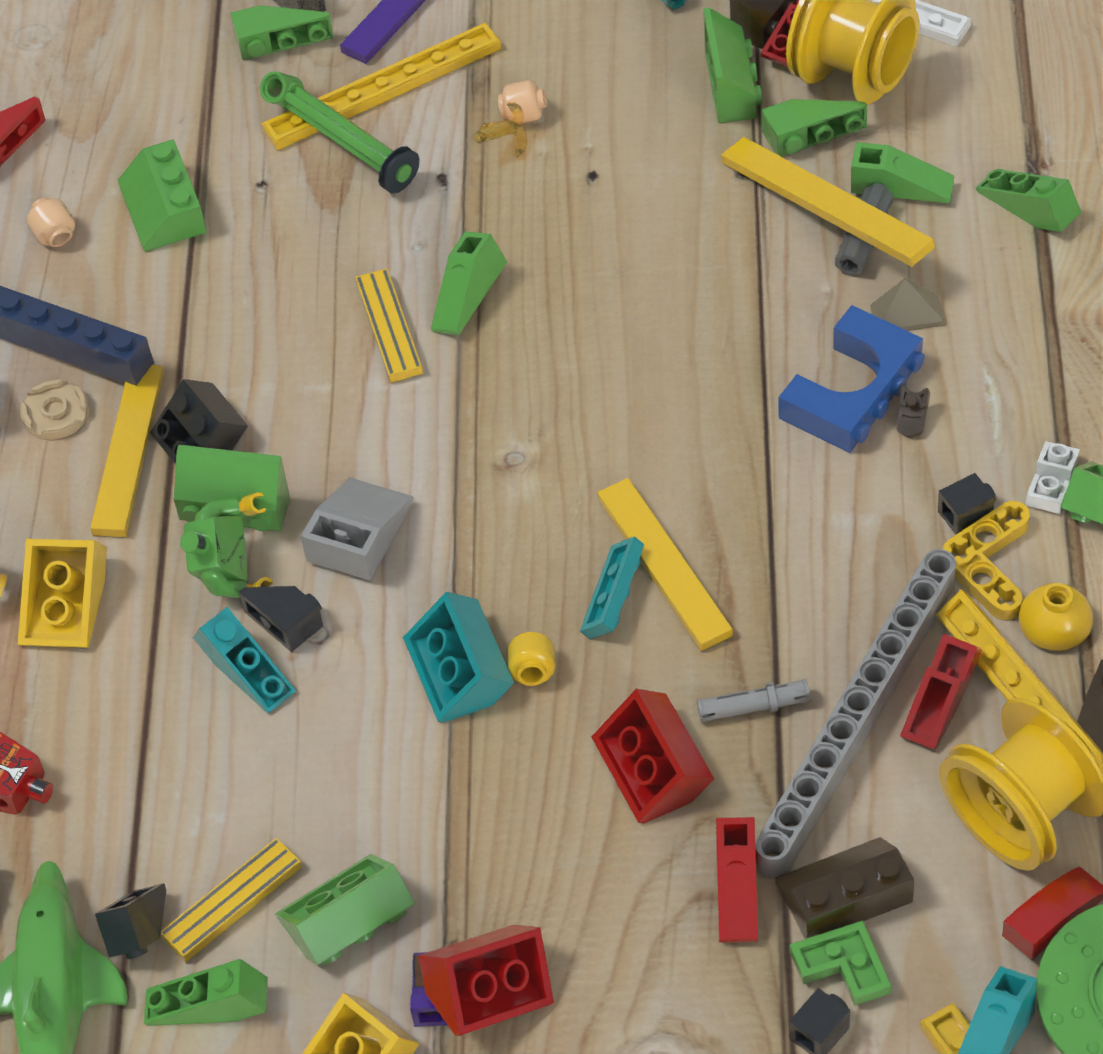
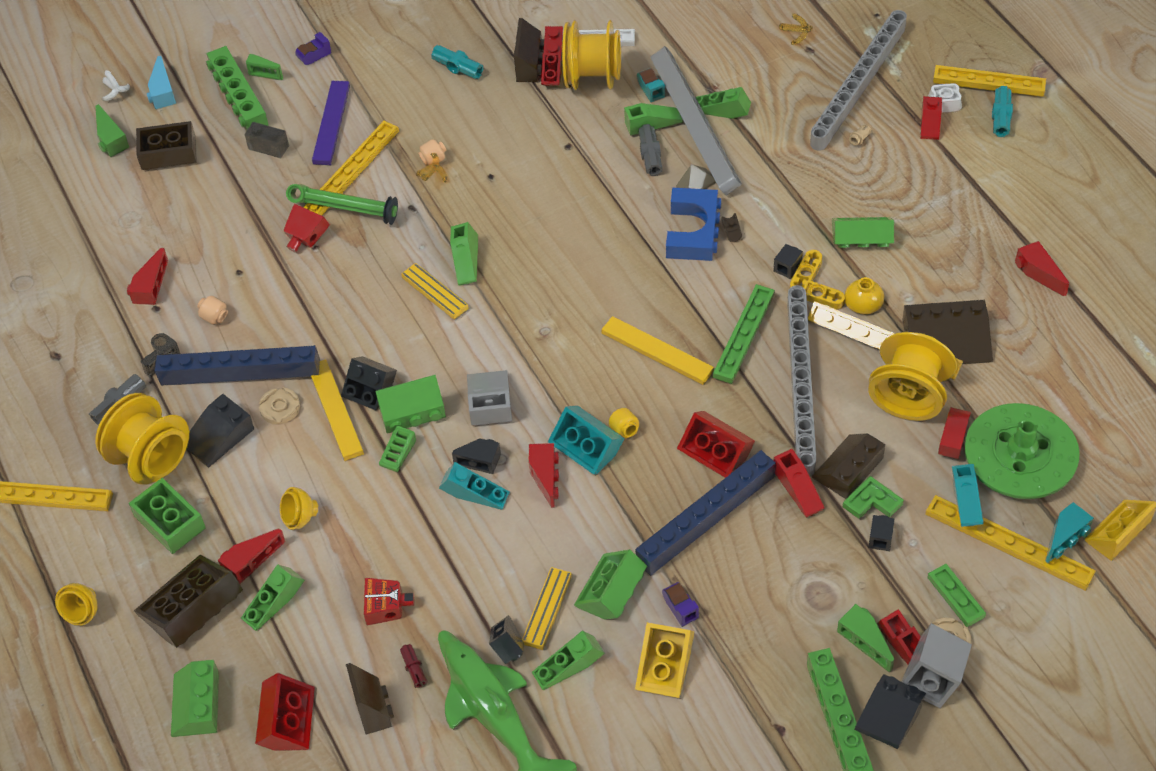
camera: 30 degrees left, 0 degrees up
(61, 592) = (351, 496): yellow slope -> none
(161, 197) = (266, 273): bright green slope -> none
(165, 544) = (403, 437): none -> bright green slope
(217, 546) = (426, 435): bright green torso -> none
(256, 147) = (304, 227): none -> red torso
(275, 29) = (269, 165): bright green slope -> none
(365, 673) = (542, 469): none -> red slope
(488, 978) = (710, 583): red slope -> none
(563, 859) = (706, 512): none -> dark blue brick
(612, 588) = (641, 372): teal plate -> none
(730, 68) = (530, 97): bright green slope -> none
(754, 700) = (753, 391): light grey pin -> none
(806, 123) = (586, 109): bright green slope -> none
(816, 594) = (743, 334): none -> bright green plate
(828, 201) = (626, 142): yellow tile -> none
(936, 119) = (649, 82): none -> teal leg
(941, 691) = (835, 353): red slope -> none
(966, 210) = (696, 121): none -> light grey beam
(1052, 477) = (818, 232): white slope -> none

